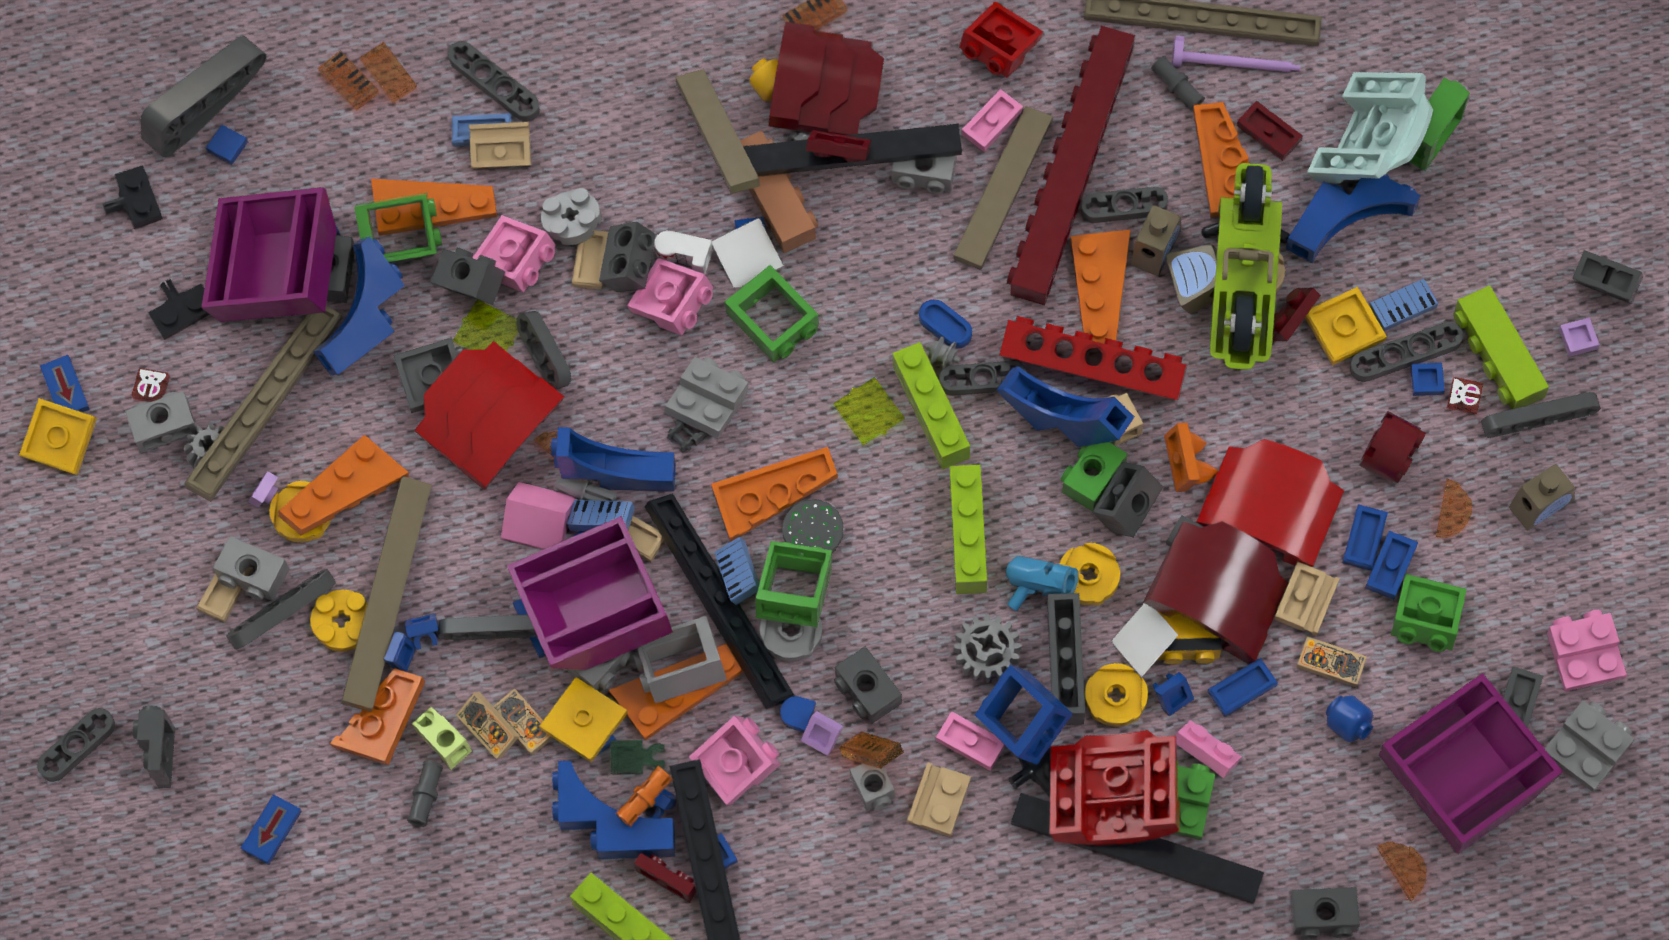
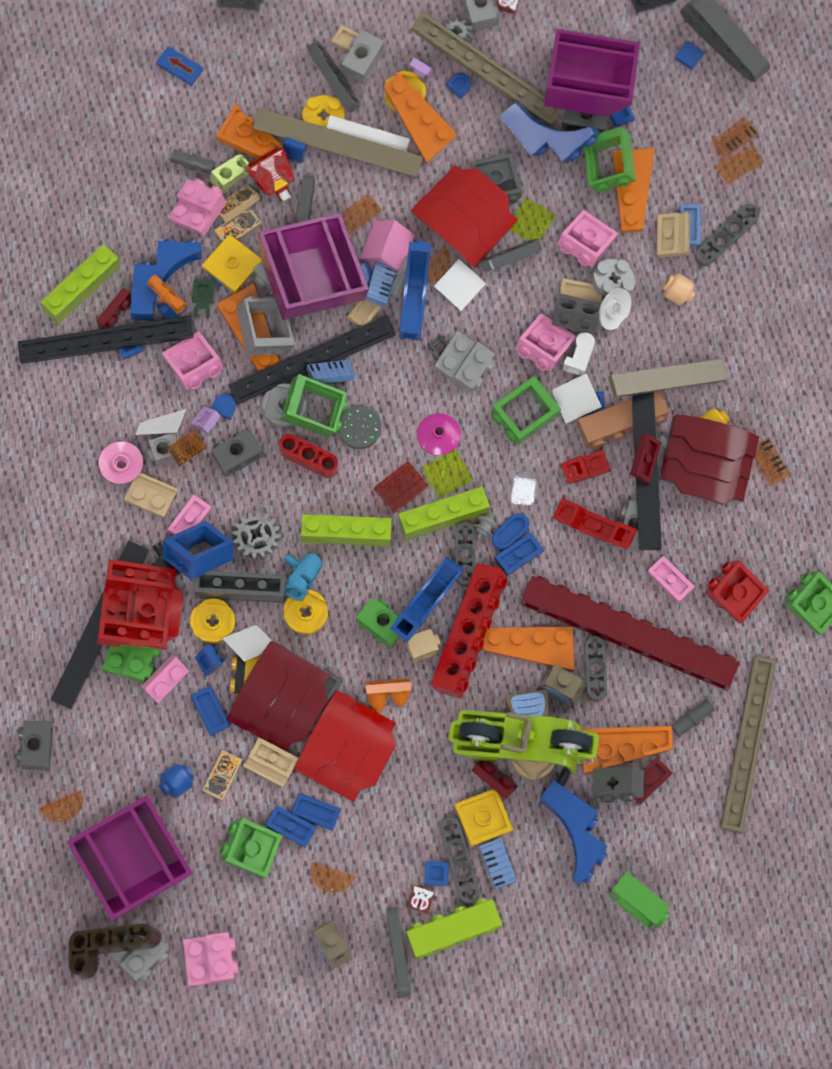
camera: 85 degrees right, 5 degrees up
(179, 310) = (562, 18): black plate -> none
(285, 440) = (459, 85): none -> blue tile
(369, 554) = (368, 133): none -> white sticker
(422, 626) = (311, 164): blue tile -> none
(441, 674) = (272, 173): none -> red torso
(468, 276) = (568, 204): dark grey brick -> none
(490, 559) = (360, 213): none -> clear orange tile
(498, 777) = (197, 206): none -> bright pink plate
(579, 134) = (678, 289): none -> light nougat head
(590, 415) = (459, 284): none -> white sticker
(614, 210) = (614, 308): none -> white dish
(765, 492) = (389, 395): orange wing -> none
(808, 439) = (435, 443): none -> dark pink dish
(835, 792) = (164, 424): none -> white sticker
(843, 235) = (586, 467): none -> red slope
(863, 576) = (301, 447): none -> red beam
(883, 309) = (523, 488): none -> clear bracket
(894, 827) = (121, 452): none -> bright pink dish
(896, 466) = (401, 487): none -> clear red plate
(930, 211) = (594, 525): none -> red slope
(977, 308) = (519, 554): none -> blue plate
(1003, 188) = (616, 583): dark tan tile -> none
(1127, 499) = (356, 642): dark grey brick -> none
(1233, 61) = (715, 722): lavender piece -> none
(1275, 144) = (618, 783): none -> dark grey brick
(1383, 130) = (629, 856): light aqua slope -> none
(1391, 446) = (379, 834): dark red brick -> none
(1522, 692) = (177, 905): dark grey plate -> none
(1579, 337) = (459, 990): lavender plate -> none
(1592, 766) = (113, 944): none -> dark brown beam
(1608, 277) = (503, 1016): dark grey brick -> none

